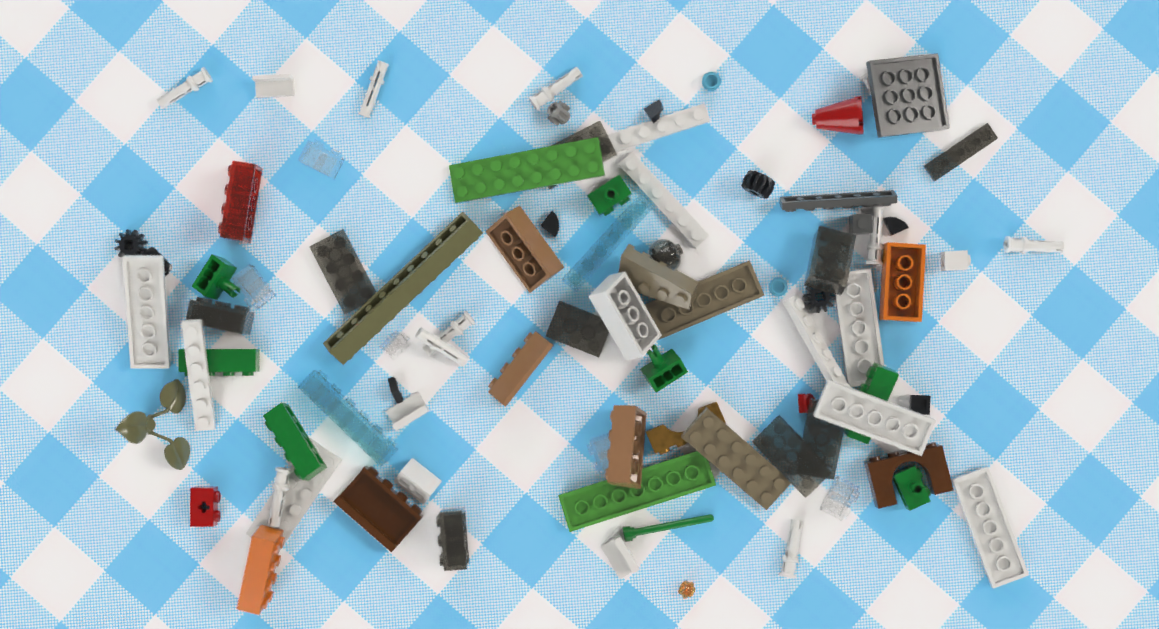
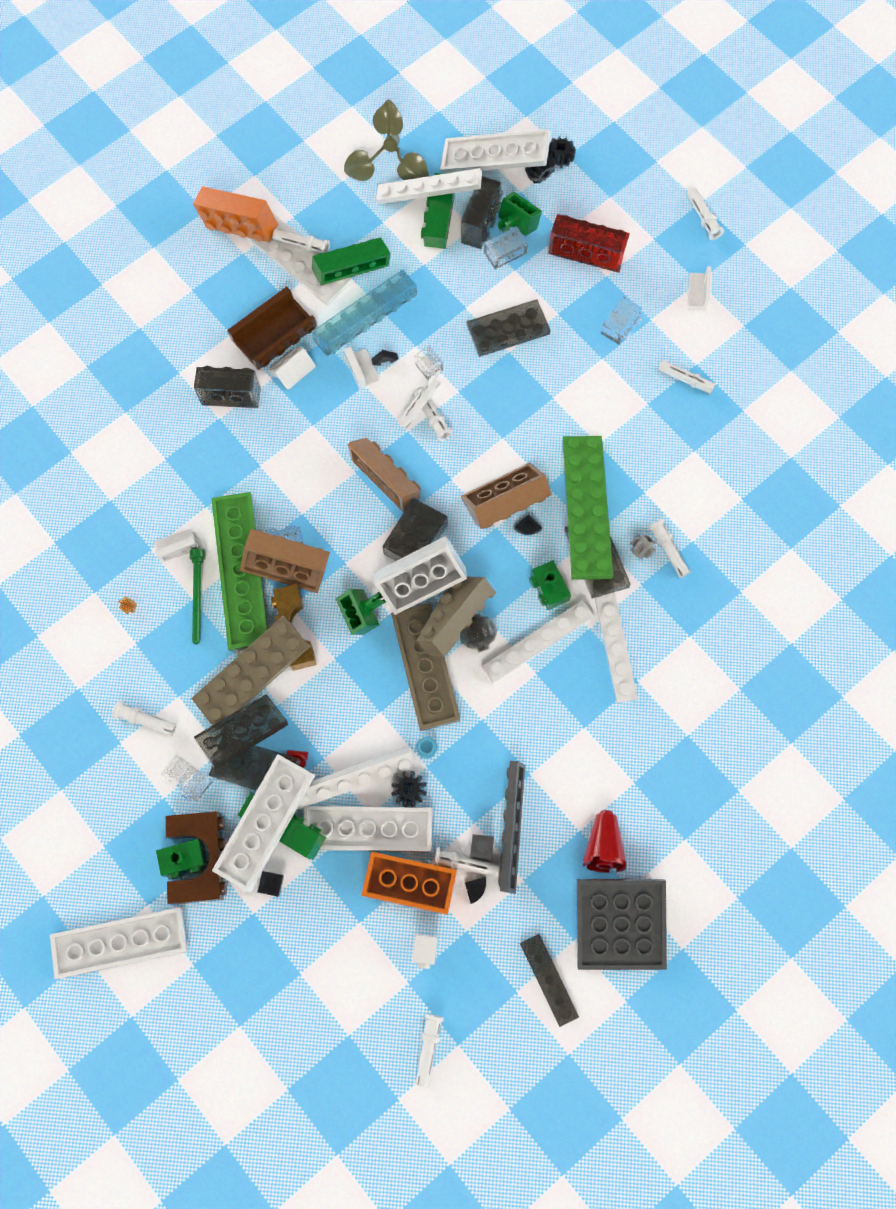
camera: 105 degrees right, 15 degrees down
(198, 514) = (305, 182): red brick -> none
(402, 288) = (484, 377): olive brick -> none
(607, 243) = (499, 574): clear light blue brick -> none
(654, 110) = (635, 644): black tile -> none
(711, 81) = (660, 709): medium azure plate -> none
(758, 184) = (541, 739): black gear -> none
(830, 260) = (446, 803): clear smoke brick -> none

